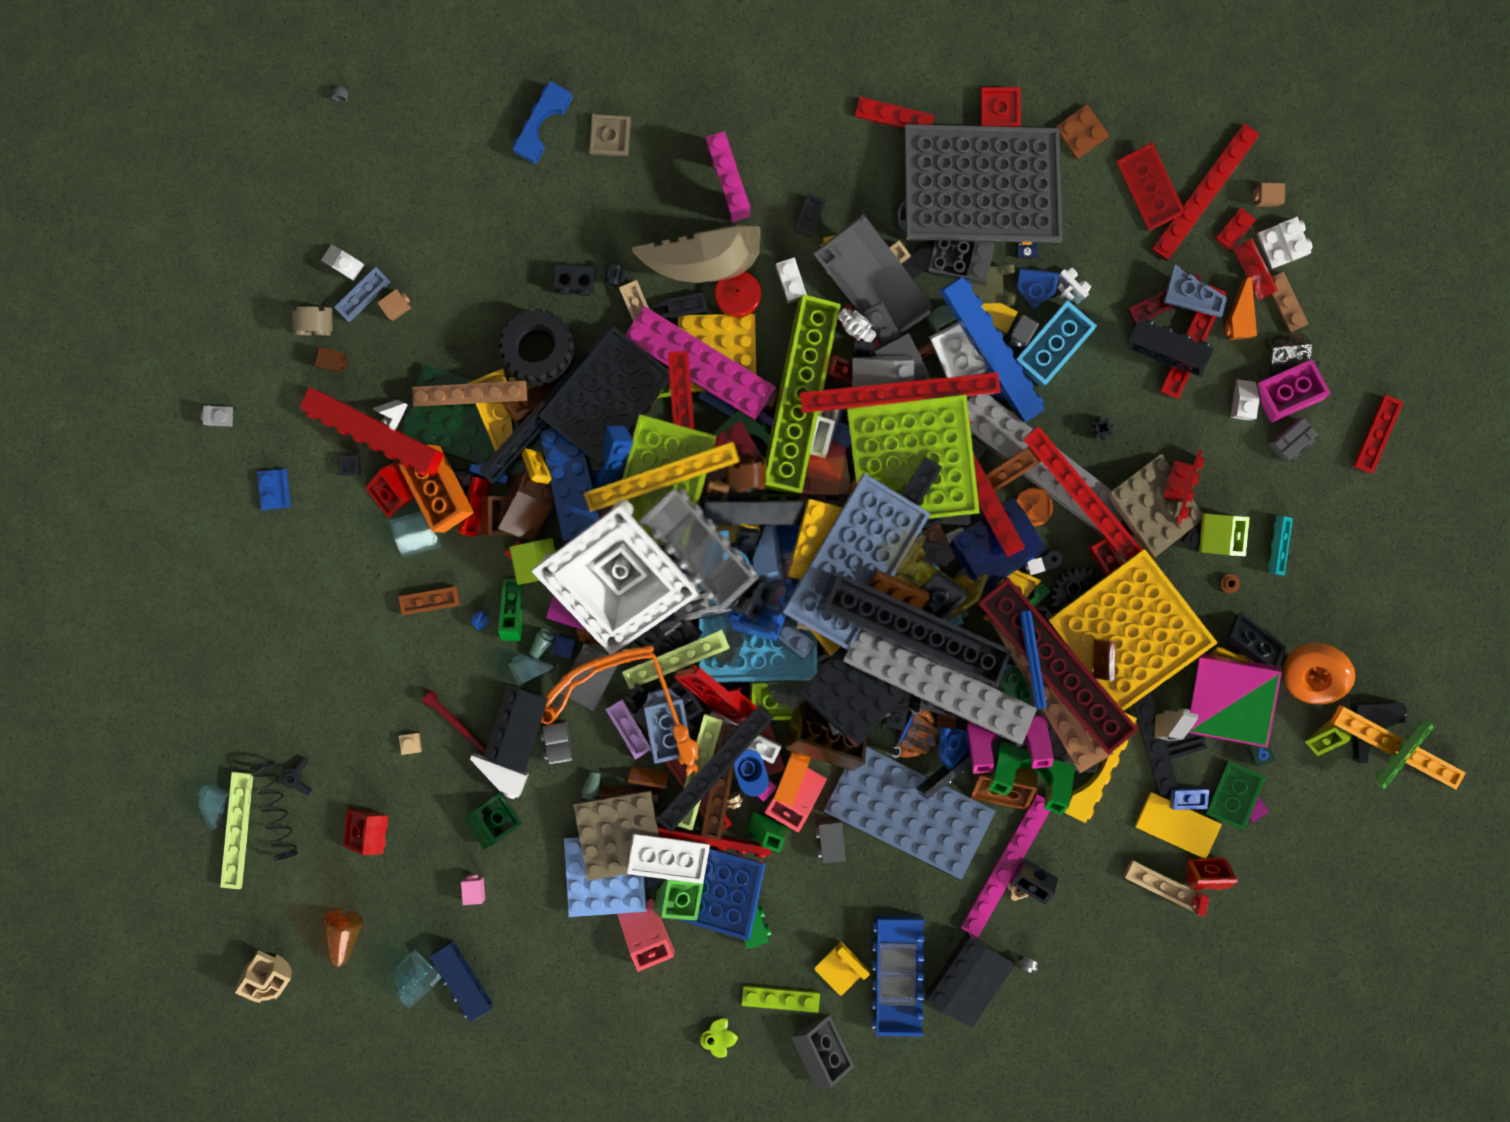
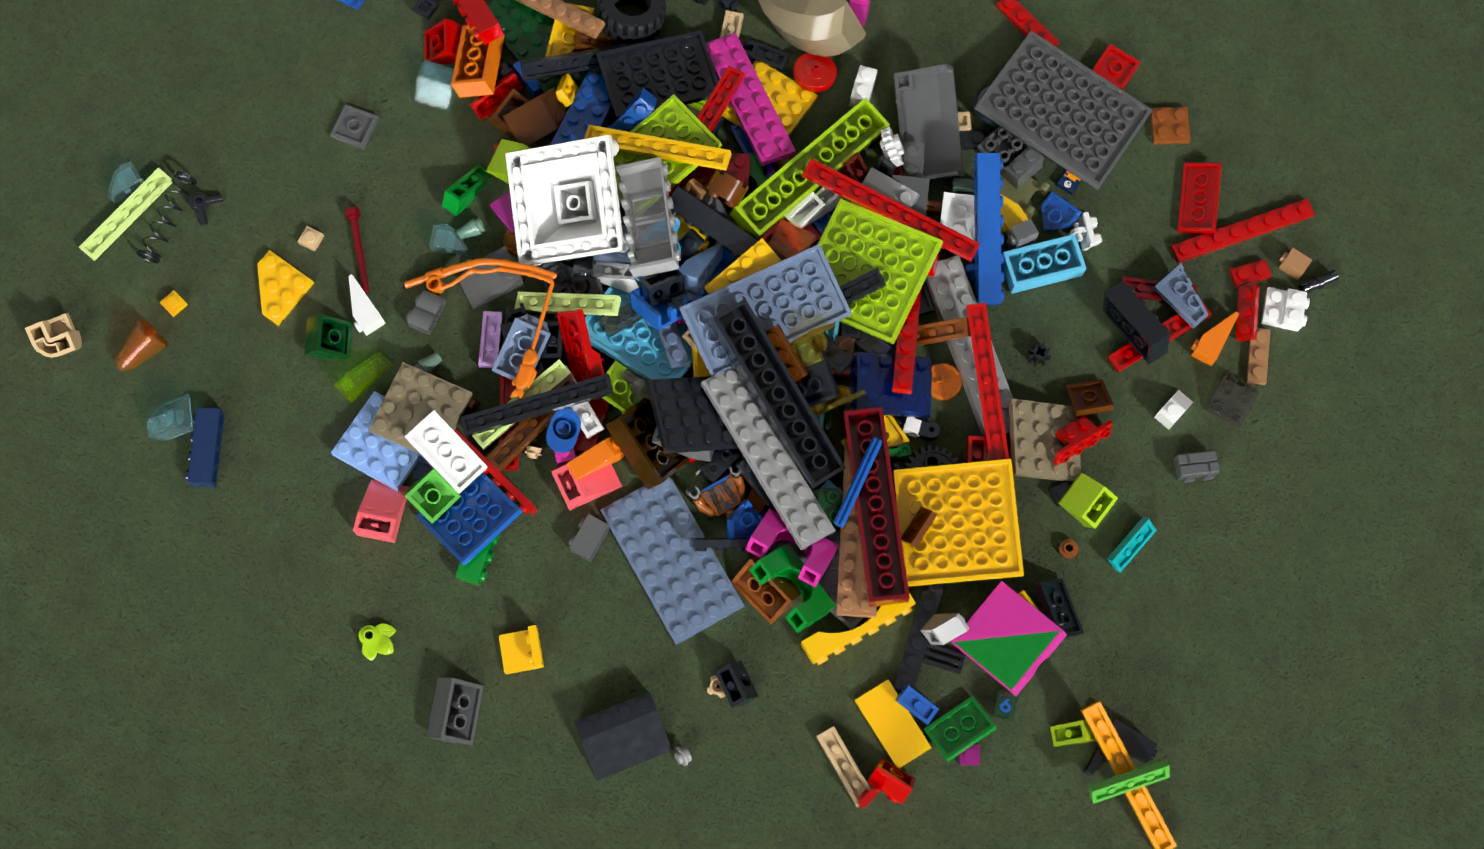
camera: 30 degrees right, 15 degrees down
(338, 878) = (173, 303): none -> yellow plate
(365, 831) = (224, 280): red slope -> none
(370, 617) = (354, 126): none -> dark grey tile
(416, 803) = (280, 287): none -> yellow plate
(429, 600) = (409, 142): dark orange plate -> none
(473, 890) = (271, 381): bright pink brick -> none
(480, 619) = (437, 180): blue plate -> none
(515, 728) = (402, 275): black slope -> none
(545, 833) = (362, 376): none -> clear neon green slope
(564, 646) = (487, 241): clear blue brick -> none
(648, 777) = (481, 391): dark orange slope -> none
(768, 831) = (544, 494): green slope -> none
(780, 998) = (453, 643): lime plate -> none
(809, 215) = (911, 52): black plate -> none
(898, 975) = (565, 688): blue window -> none
(1006, 867) = (709, 664): dark pink plate -> none
(1168, 440) = (1089, 397): none -> reddish brown plate
(1292, 391) = (1218, 424): dark pink slope -> none
(1299, 197) = (1319, 281): none -> black pin
(1318, 673) = (1097, 669): orange hat -> none
(1378, 434) = (1272, 508): red plate -> none

